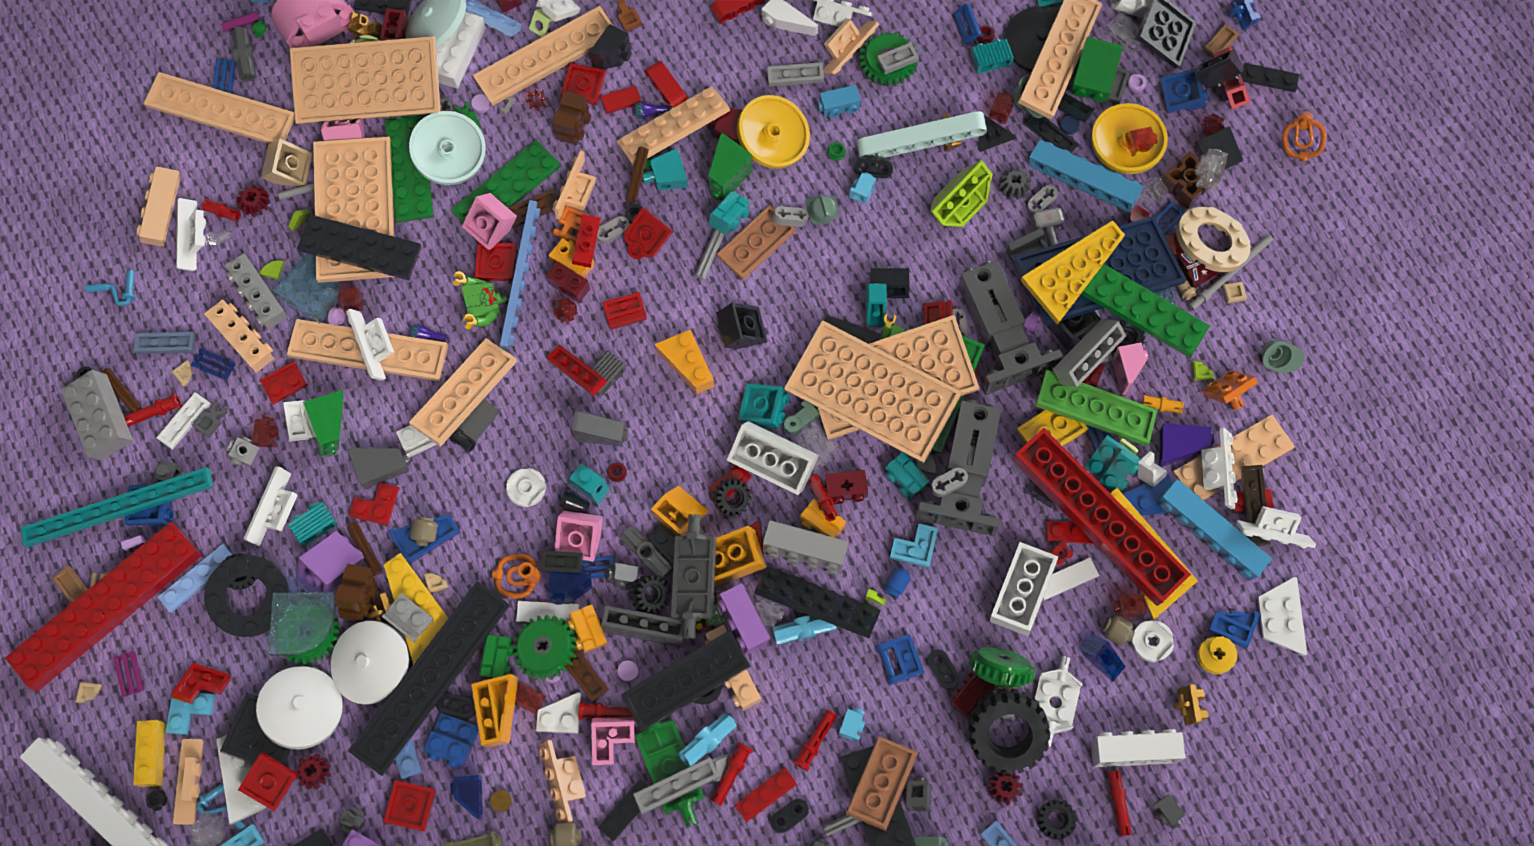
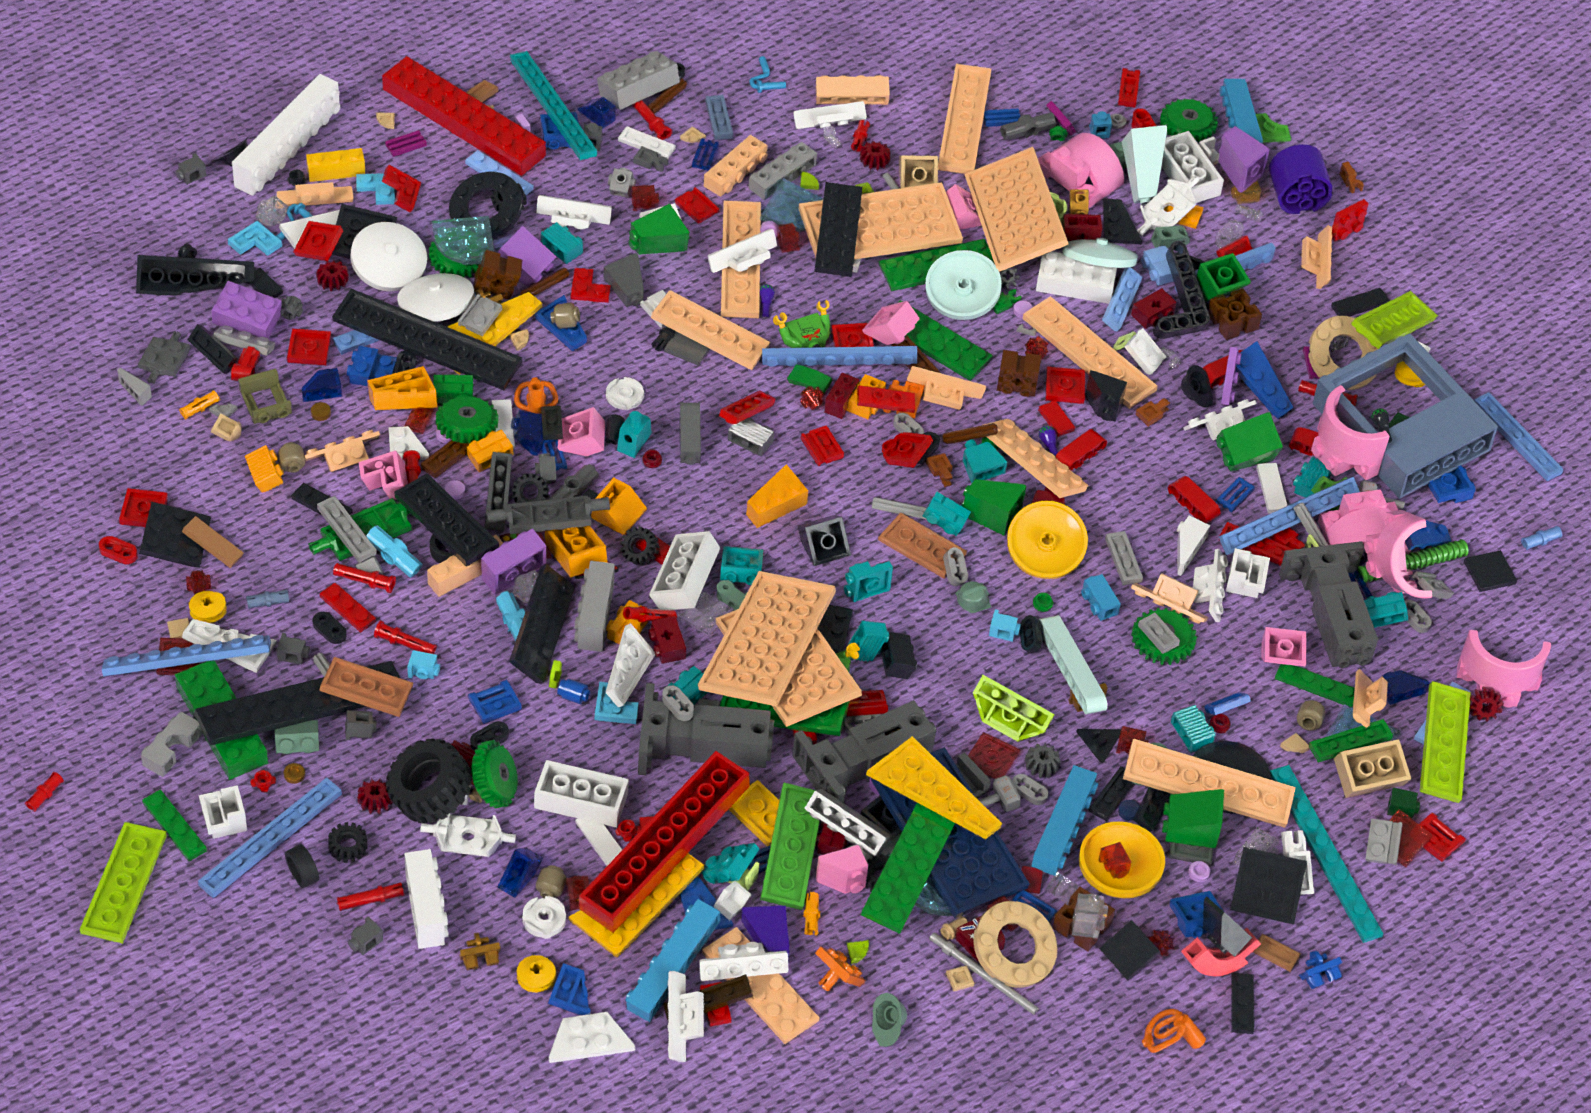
camera: 75 degrees right, 20 degrees down
(128, 463) = (599, 111): none -> clear blue slope
(539, 309) = (809, 377): none -> green slope
(666, 209) = (940, 466): none -> dark orange plate
(803, 298) = (868, 581): none -> teal plate
(877, 524) = (629, 665): none -> white wing
(1003, 224) = (993, 755): none -> clear red tile

